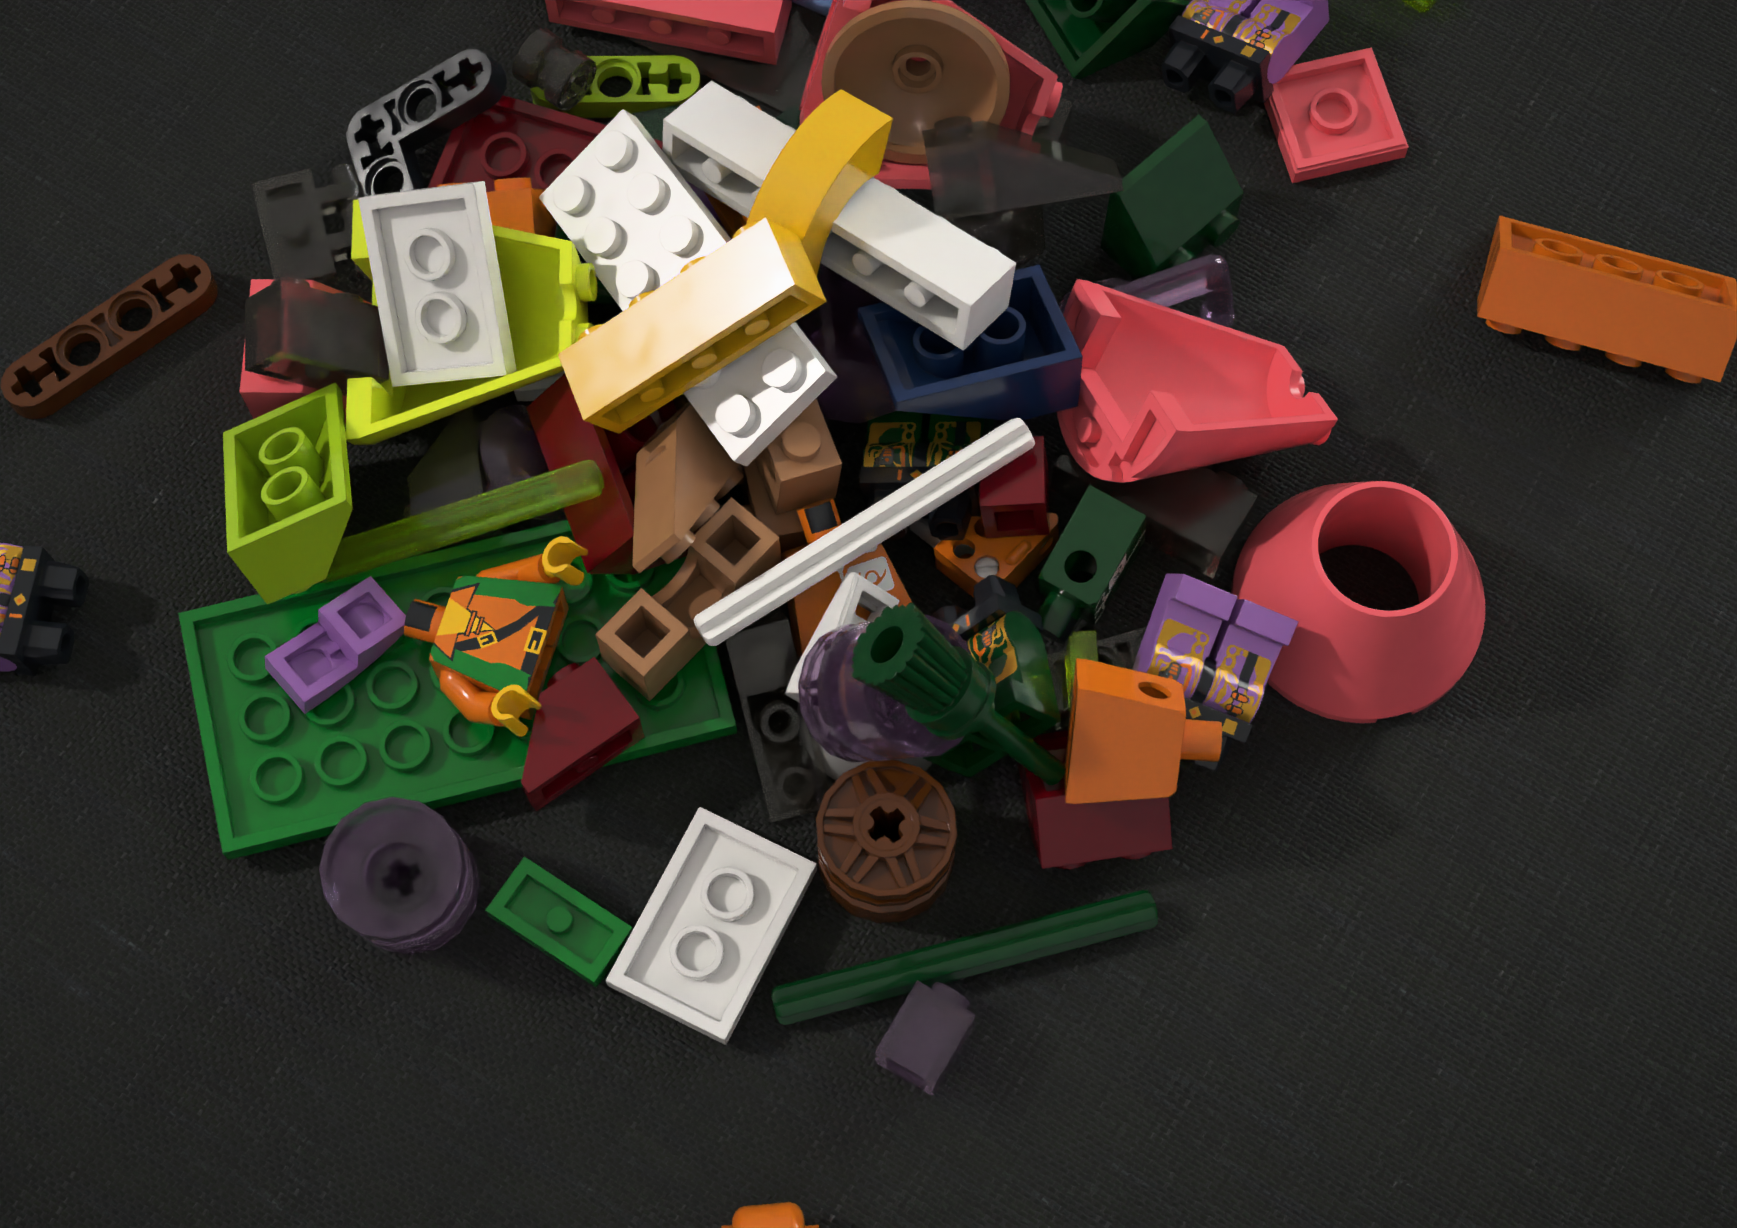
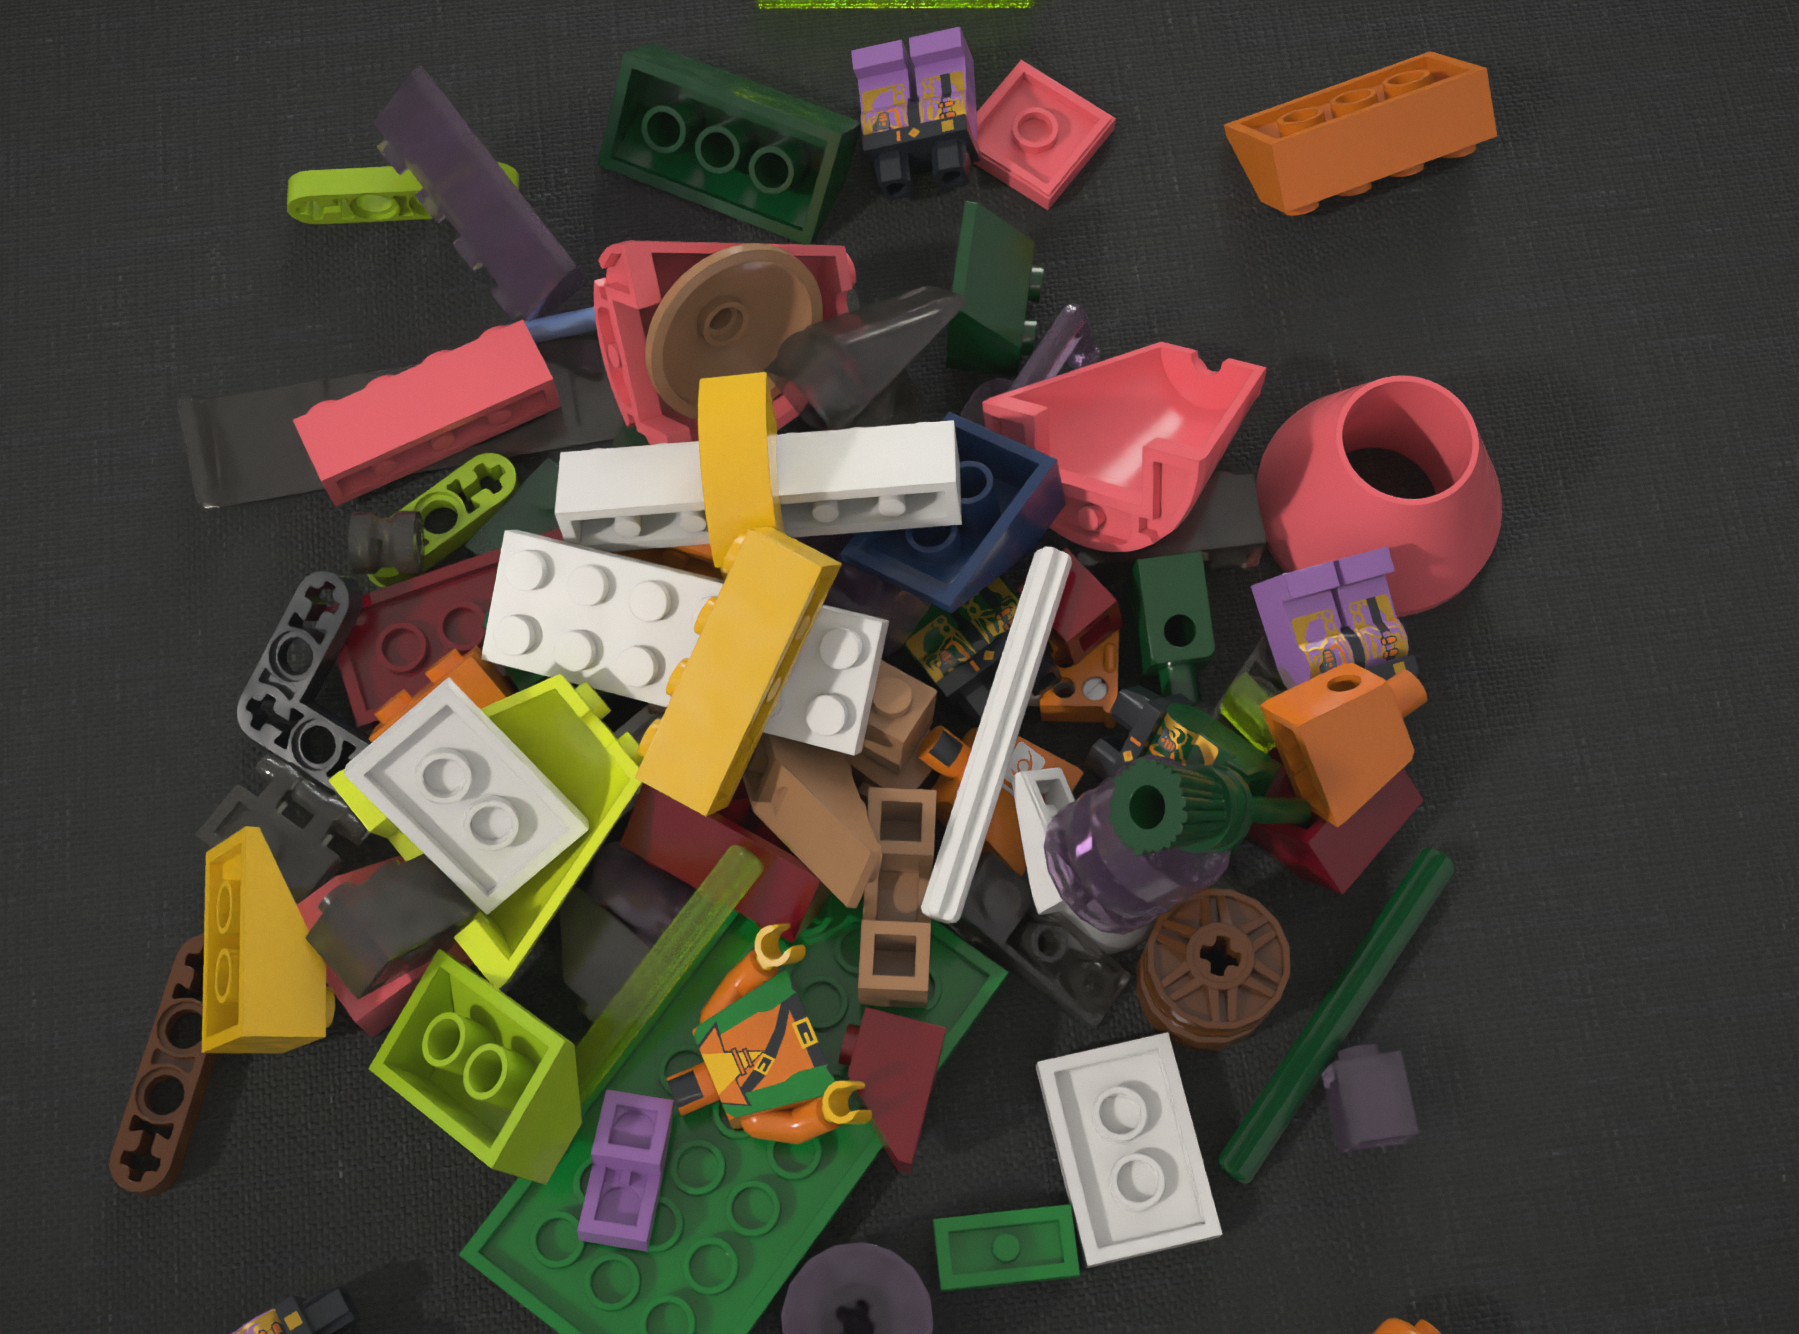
camera: 40 degrees left, 0 degrees up
(204, 310) = (258, 969): none -> yellow slope

